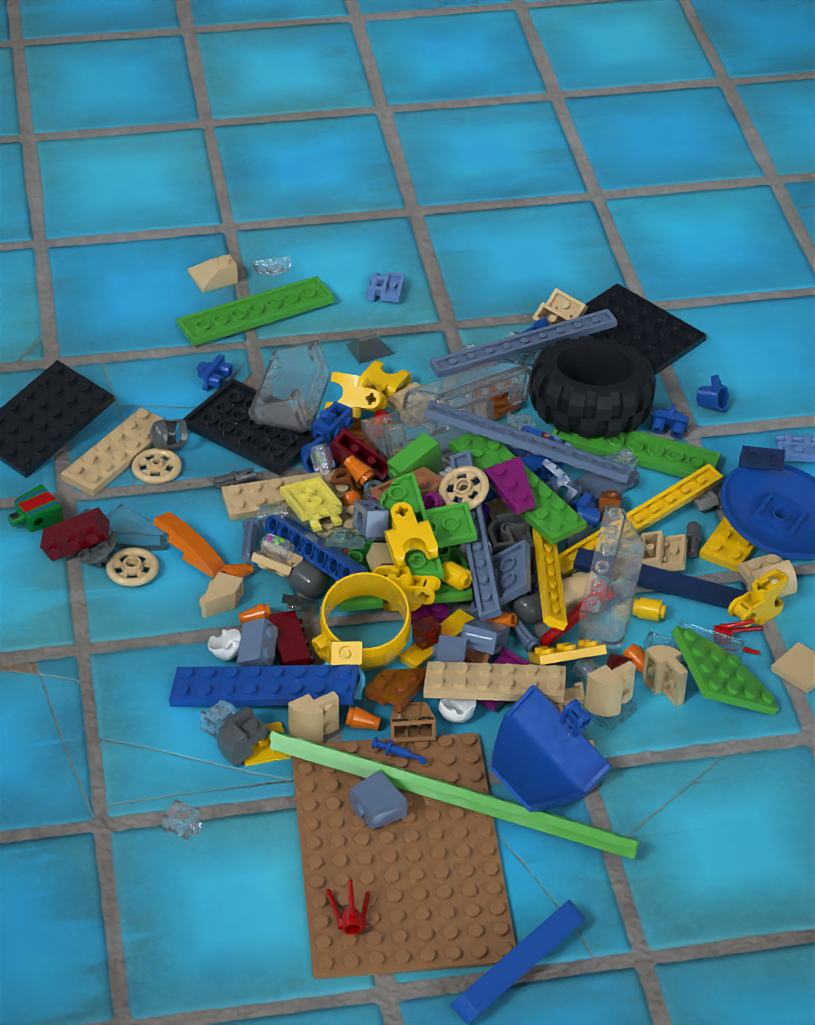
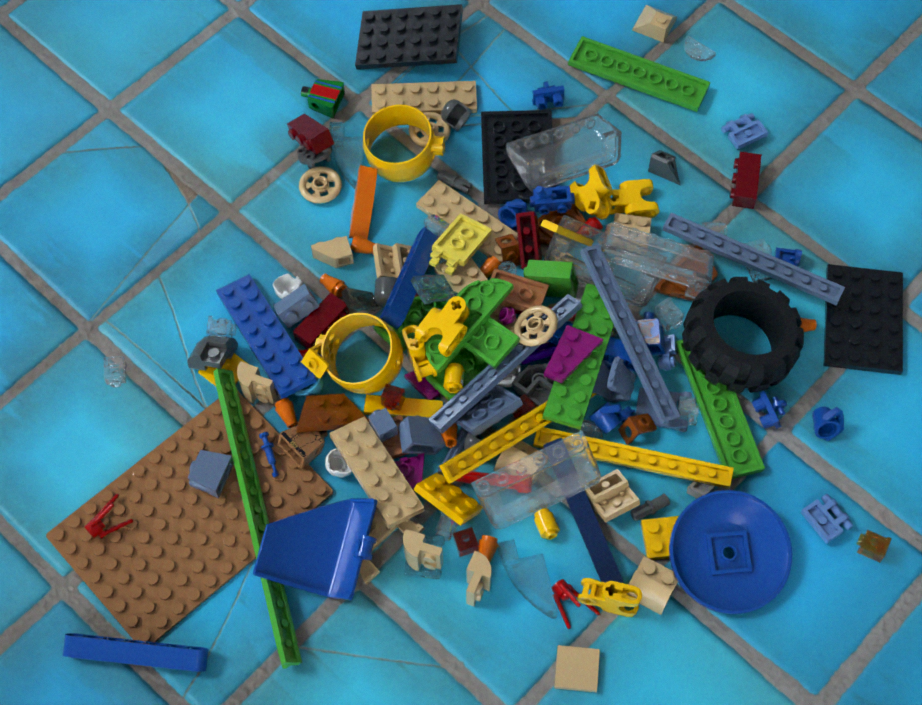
camera: 55 degrees right, 20 degrees up
(161, 454) = (401, 115): none -> yellow cylinder
(250, 529) = (409, 226): sand blue axle -> none
(276, 547) = (390, 253): clear brick -> none
(322, 459) = (505, 218): clear brick -> none
(359, 470) = (511, 248): orange cone -> none
(370, 518) = (448, 288): sand blue brick -> none
(392, 413) = (567, 233): none -> yellow tile
(437, 311) = (745, 180): none -> dark red brick
(560, 308) = (821, 257): tan brick -> none
(722, 674) = (502, 617): bright green plate -> none
(762, 458) = (769, 502): dark blue panel -> none

